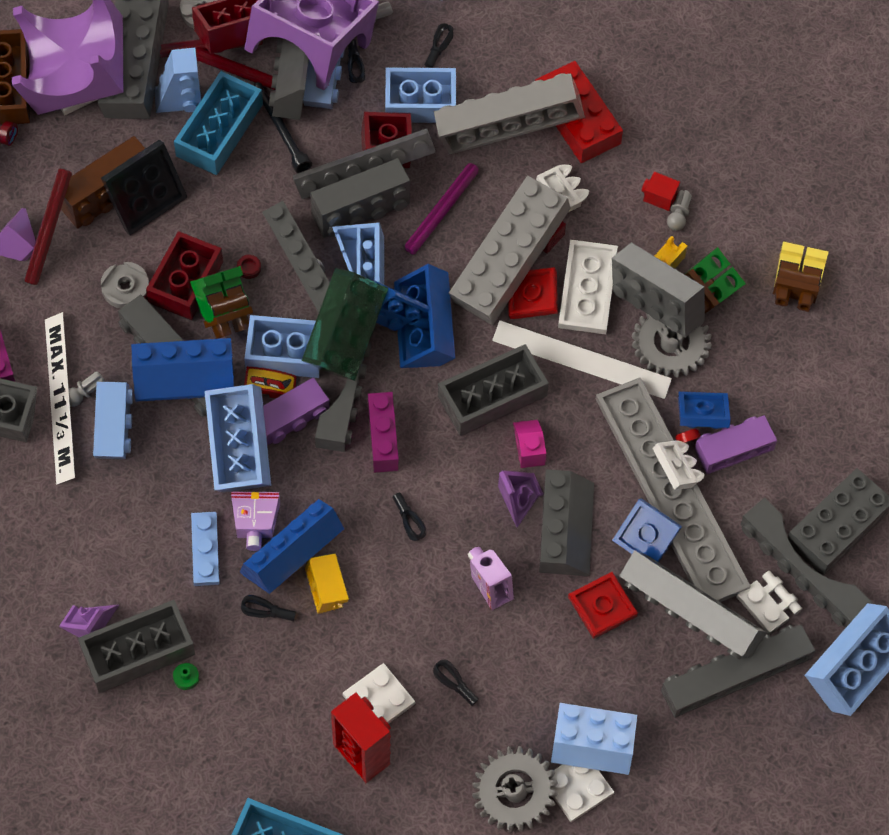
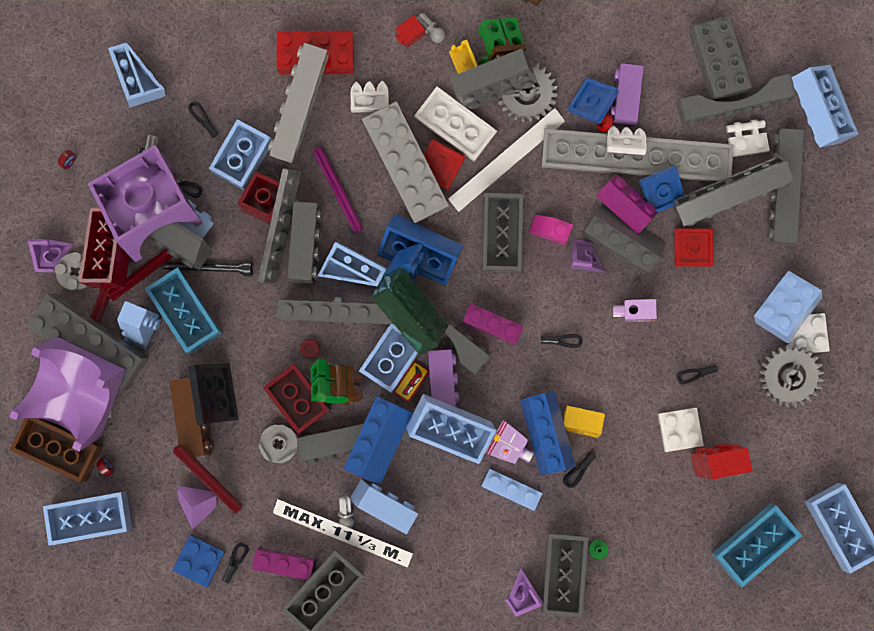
camera: 60 degrees left, 20 degrees up
(607, 503) = (627, 203): none -> magenta brick

